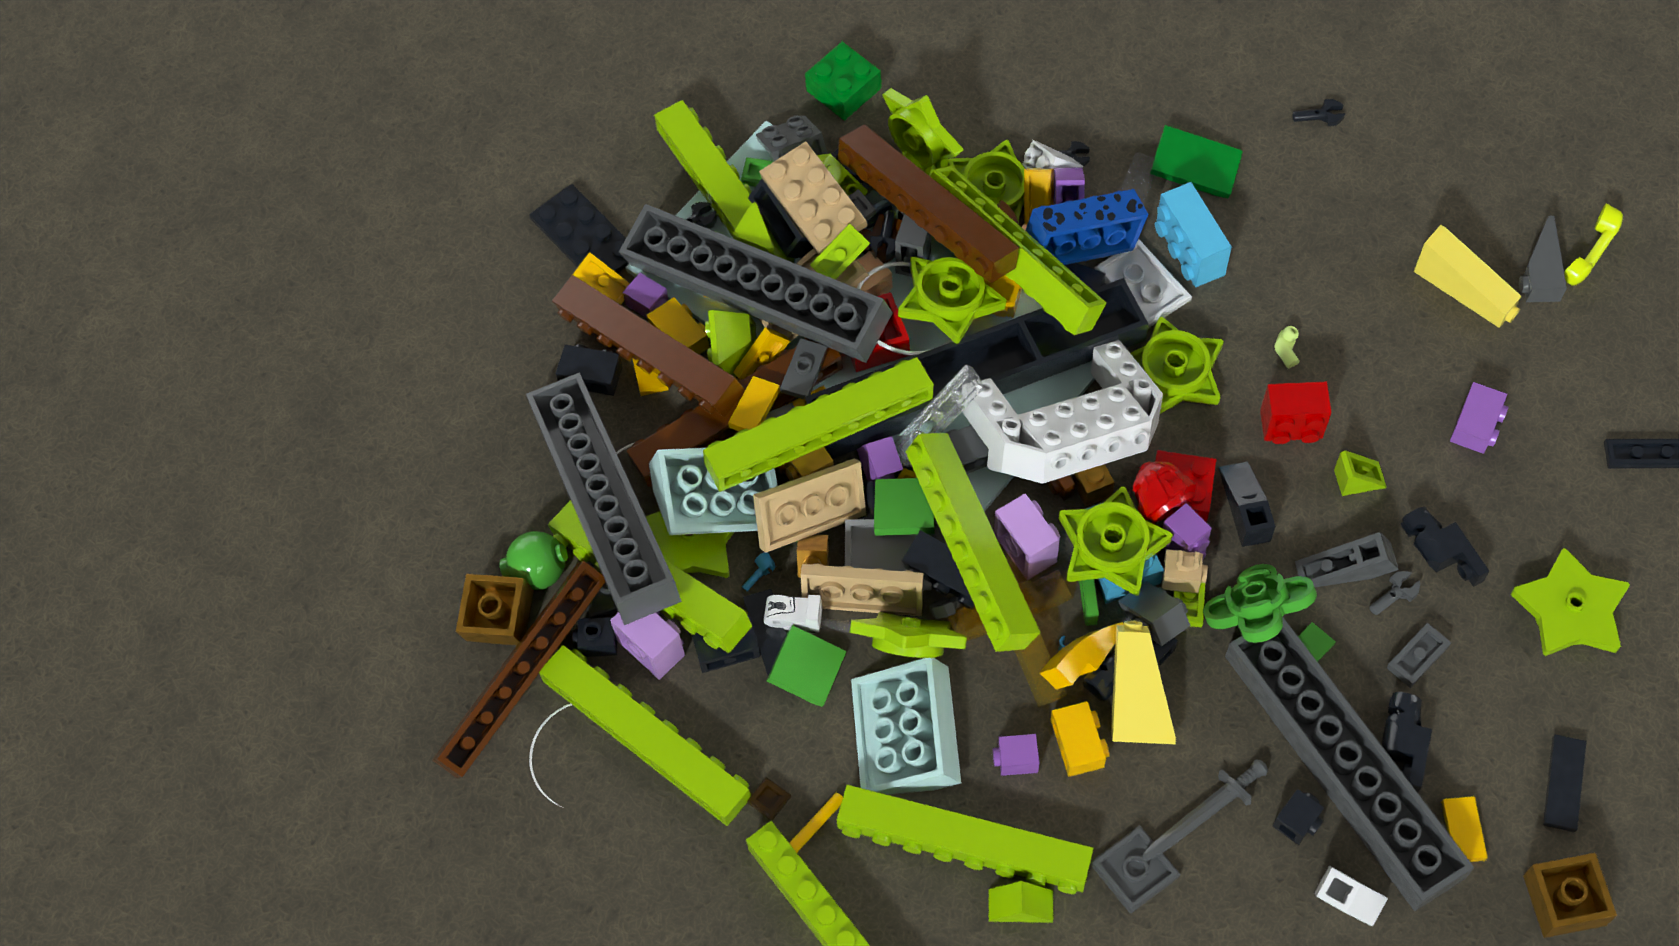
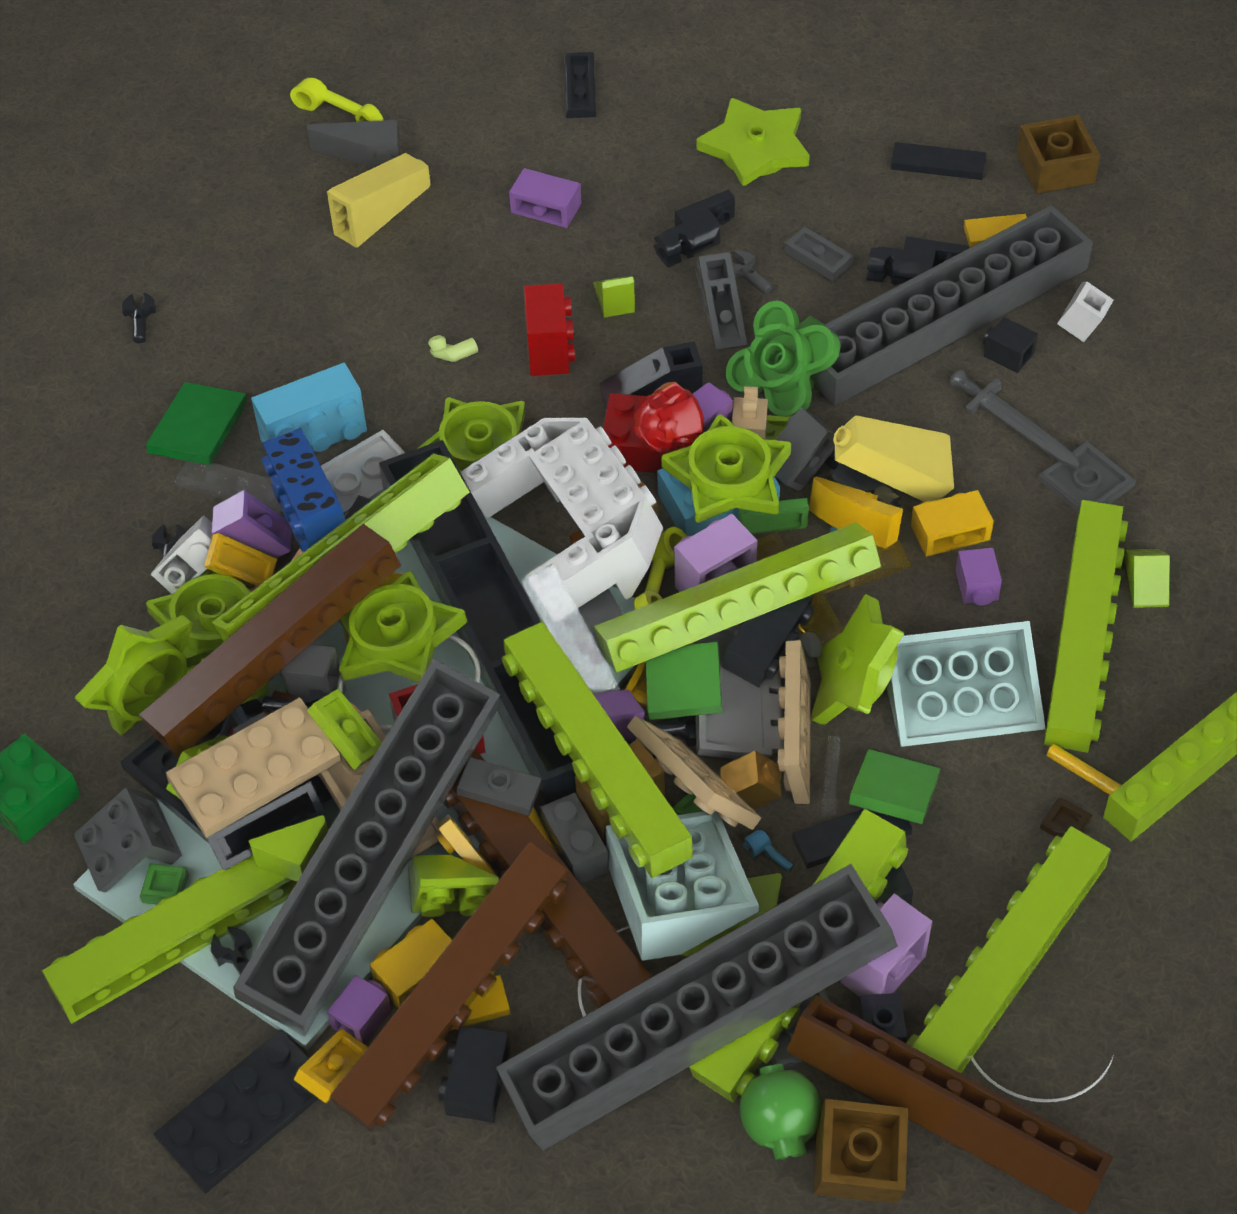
camera: 95 degrees left, 10 degrees down
(754, 404) = (560, 840): yellow tile -> none
(789, 611) = (830, 793): white leg -> none
(987, 489) = (662, 559): none -> neon yellow piece

